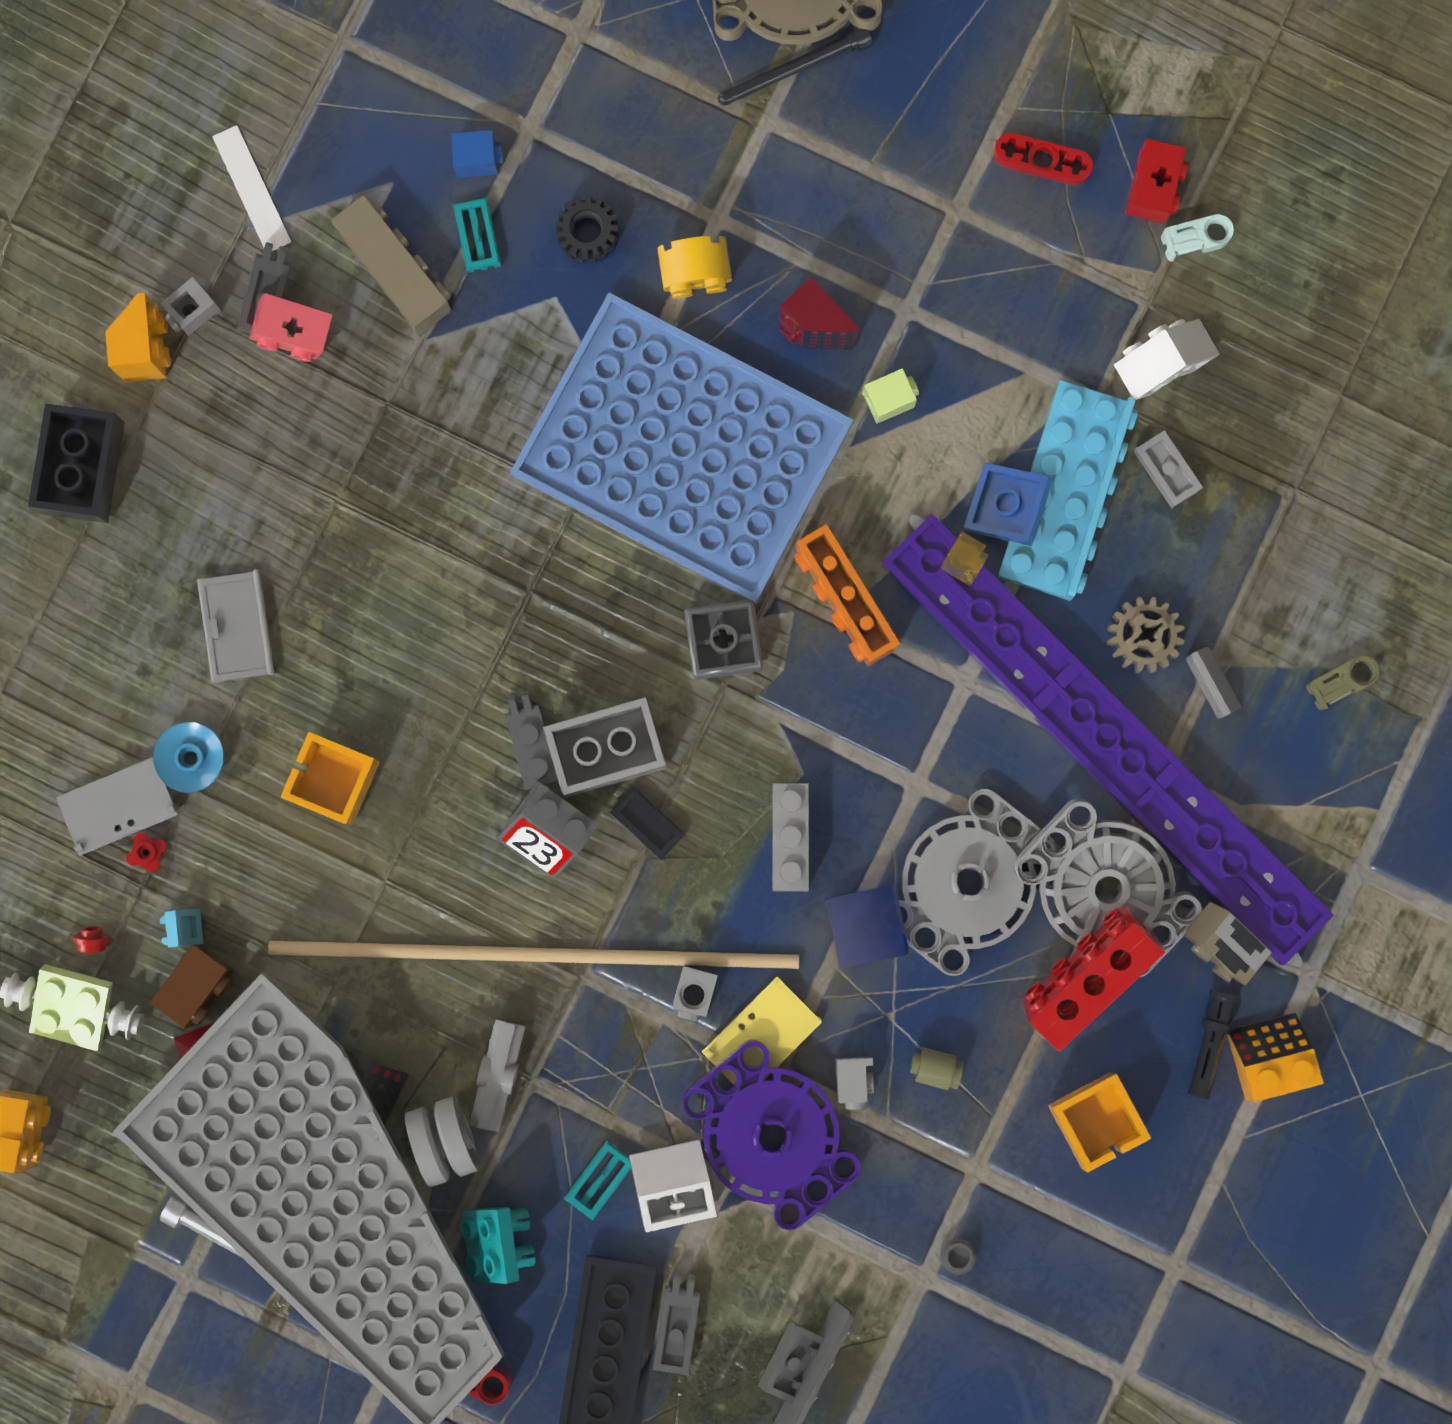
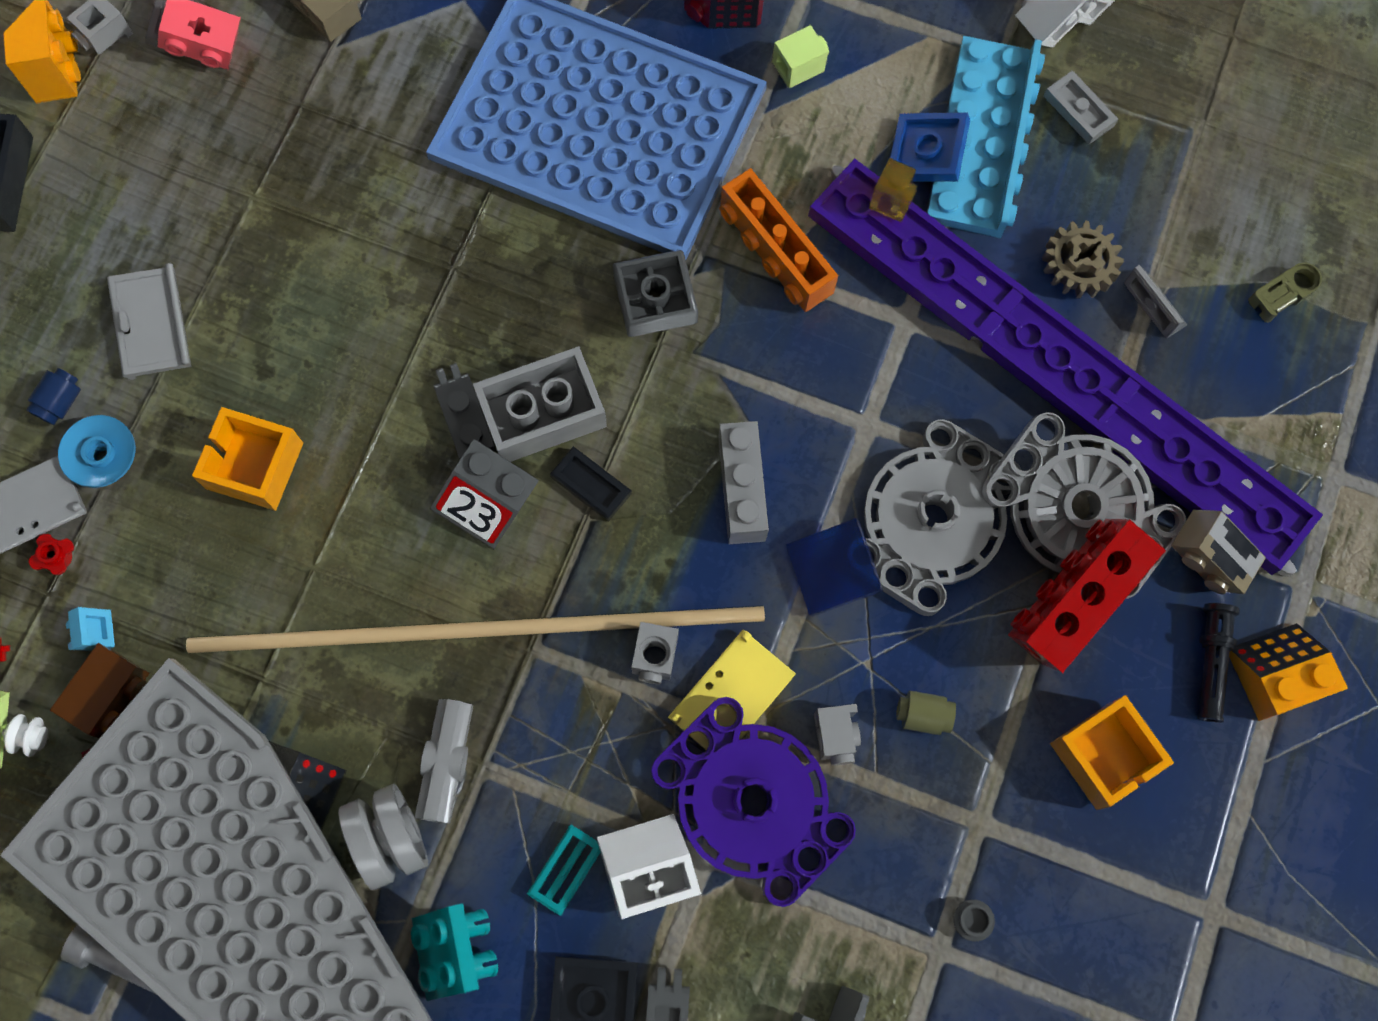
camera: 10 degrees left, 10 degrees down
(147, 698) = (53, 396): none -> dark blue brick

